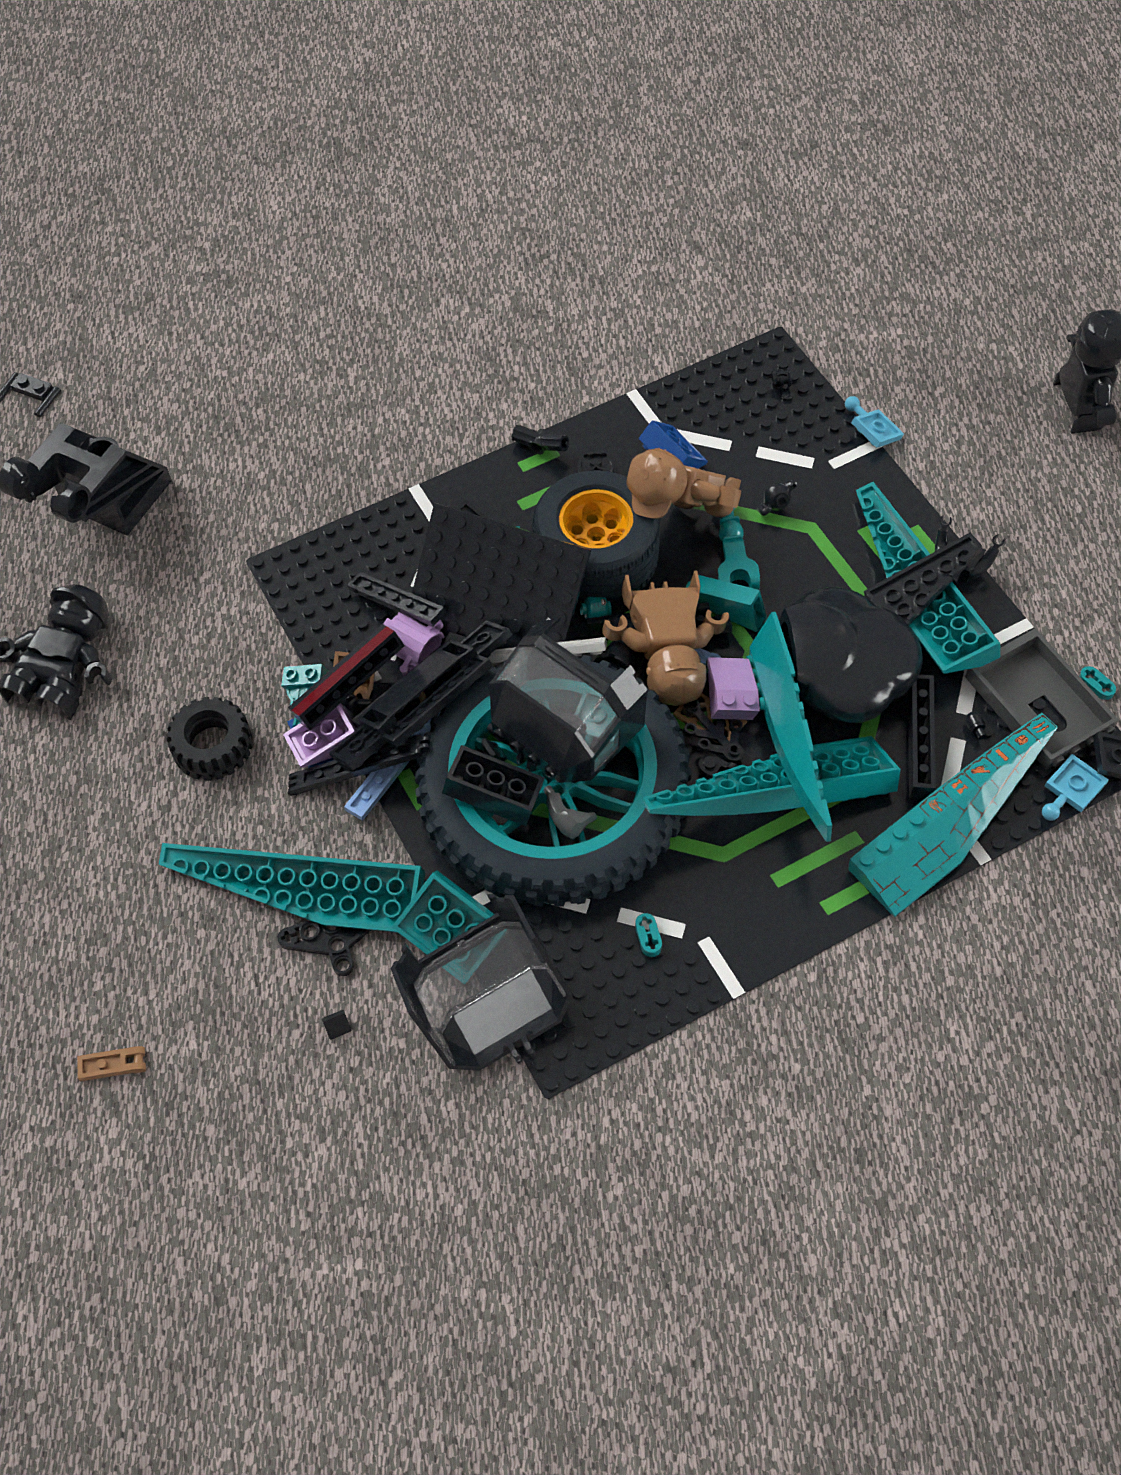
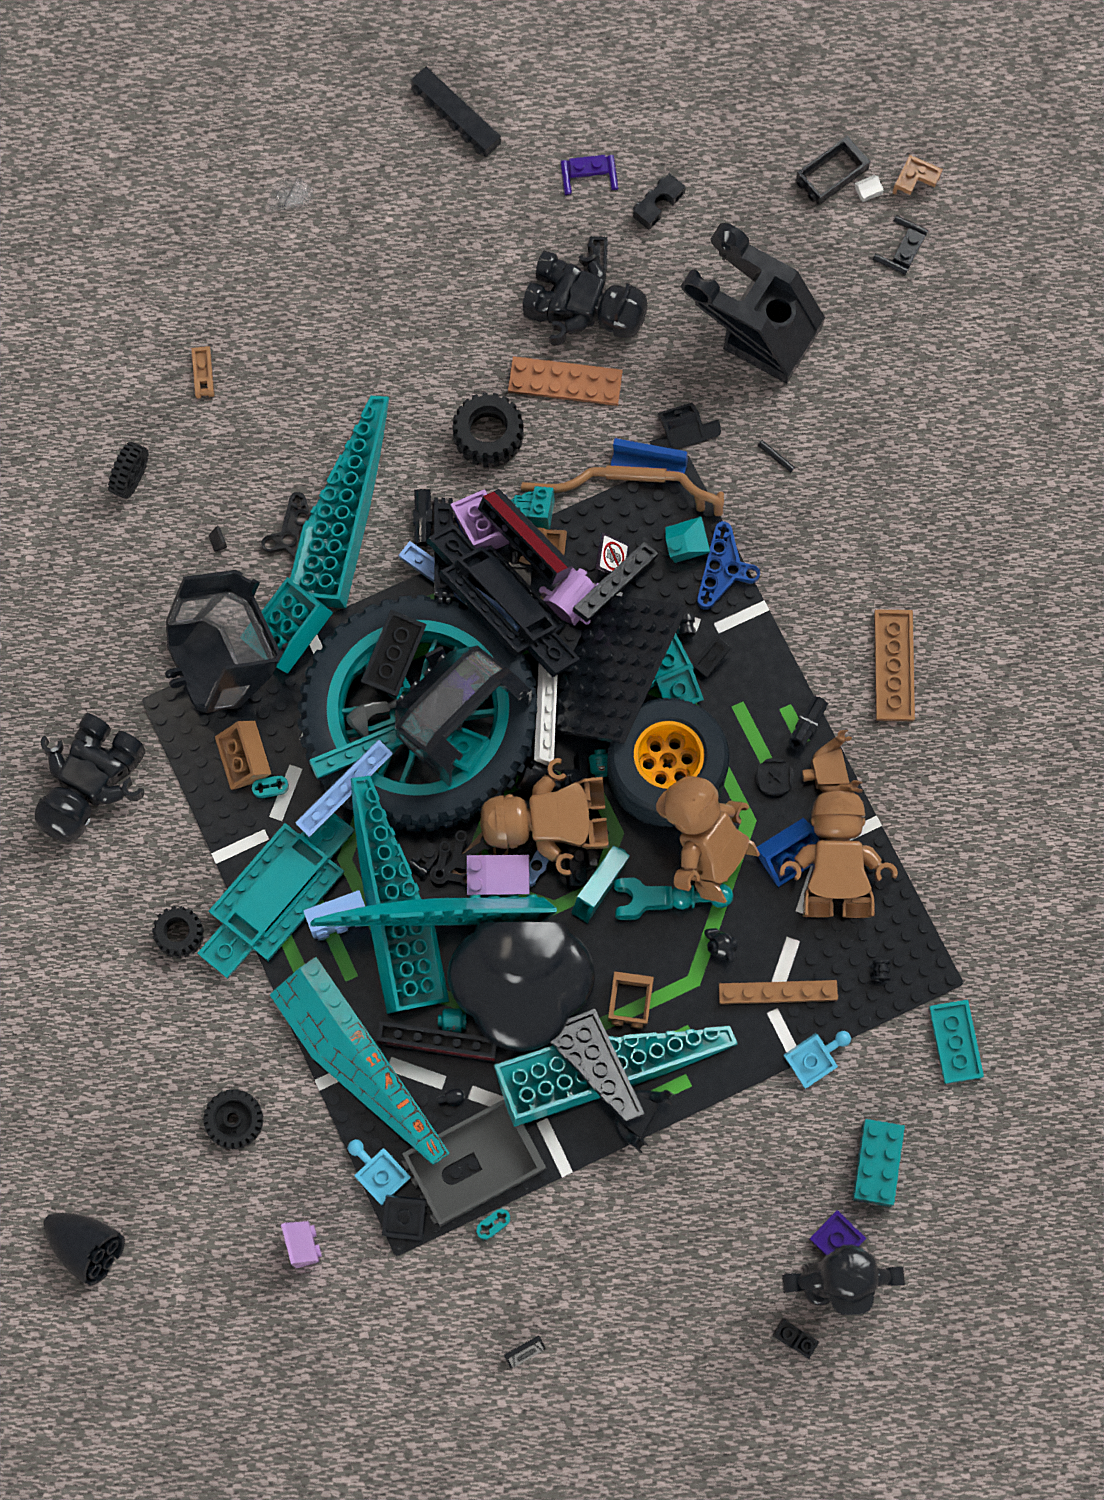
camera: 90 degrees right, 15 degrees up
(153, 675) = (565, 381): none -> nougat plate
(214, 561) = (684, 427): none -> black plate
(245, 1131) = (128, 470): none -> black wheel
(251, 485) = (776, 456): none -> black piece
(251, 588) = (650, 456): none -> blue panel
(269, 593) = (638, 474): none -> medium nougat piece
(312, 800) = (422, 516): none -> black piece
(344, 548) = (687, 540): none -> teal slope
(364, 610) = (610, 553): none -> piece
(365, 516) = (721, 575): none -> blue beam
(474, 383) = (894, 665): none -> medium nougat plate
(586, 421) = (829, 768): none -> medium nougat torso
(613, 819) = (350, 753): none -> teal plate
(613, 966) = (242, 754): none -> medium nougat slope
(657, 1145) = (86, 777): none -> black piece
(658, 827) = (341, 789): none -> light blue plate
(689, 399) = (838, 861): none -> medium nougat piece
(782, 907) = (268, 888): none -> teal piece
(798, 843) = (343, 903): none -> light blue brick
(814, 457) = (778, 992): none -> medium nougat plate
(832, 1038) = (185, 946): none -> black tyre
(837, 327) = (956, 1041): none -> teal plate
(849, 557) = (635, 980): none -> medium nougat window
(895, 726) = (452, 1020): none -> teal head
(964, 375) = (878, 1162): none -> teal brick
(1040, 405) = (836, 1233): none -> dark purple plate
(1043, 959) = (222, 1107): none -> black wheel

